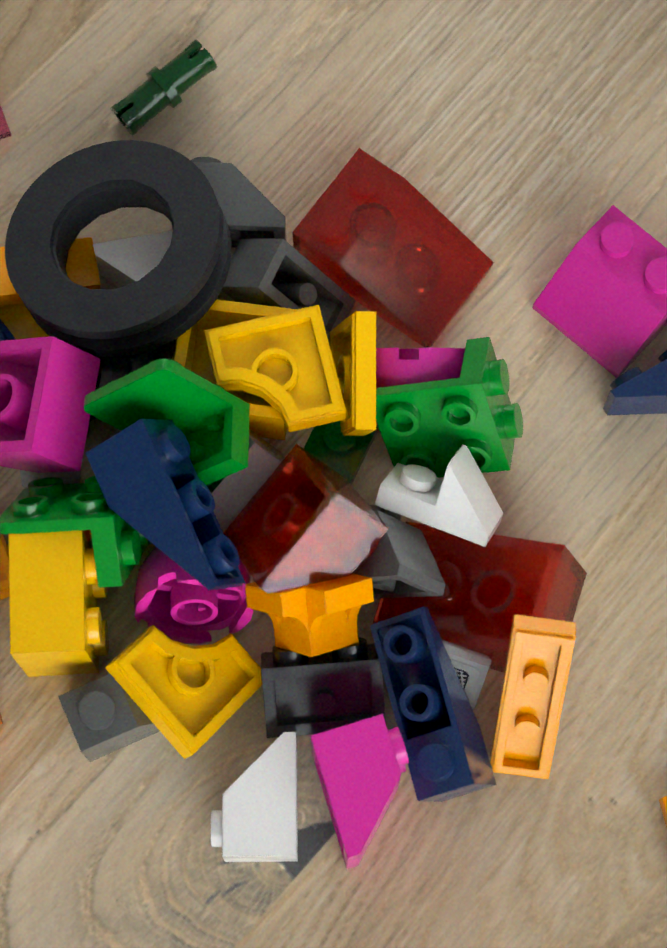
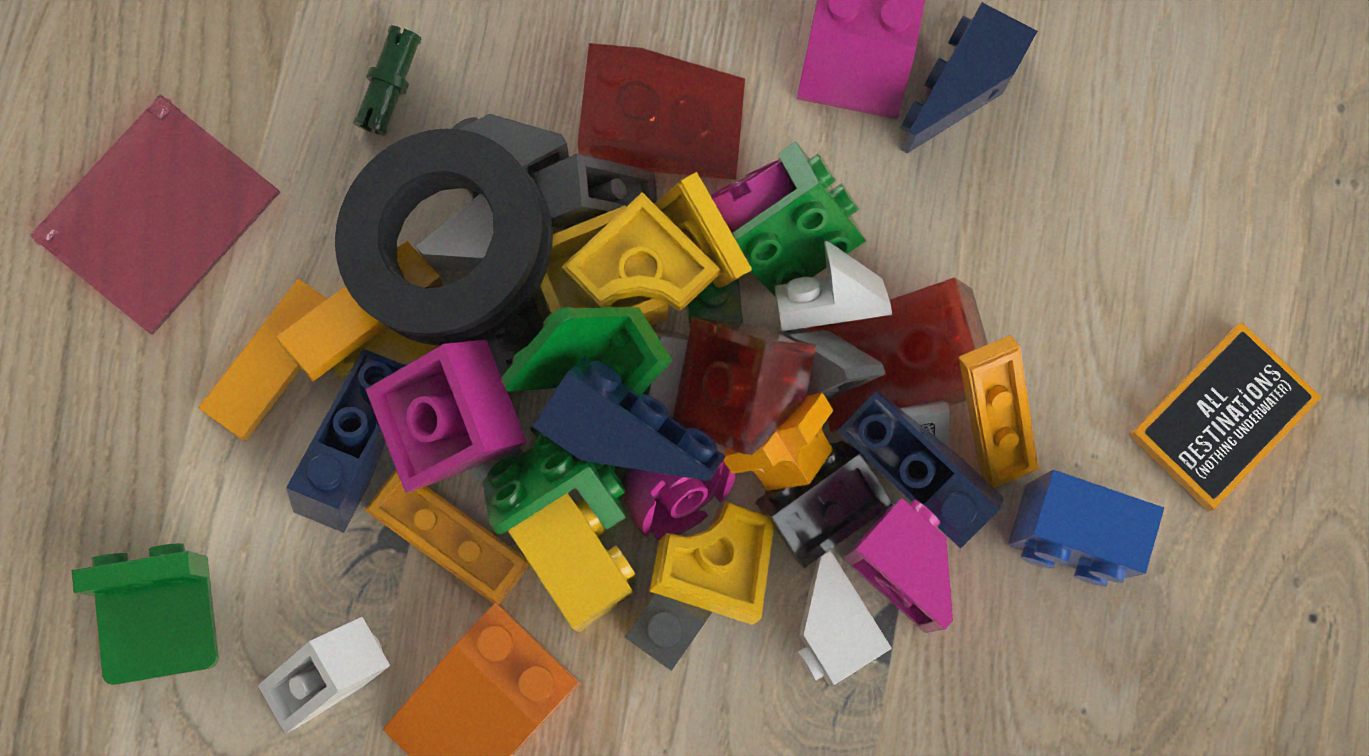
camera: 35 degrees left, 5 degrees up
(548, 853) = (1085, 528): none -> blue brick

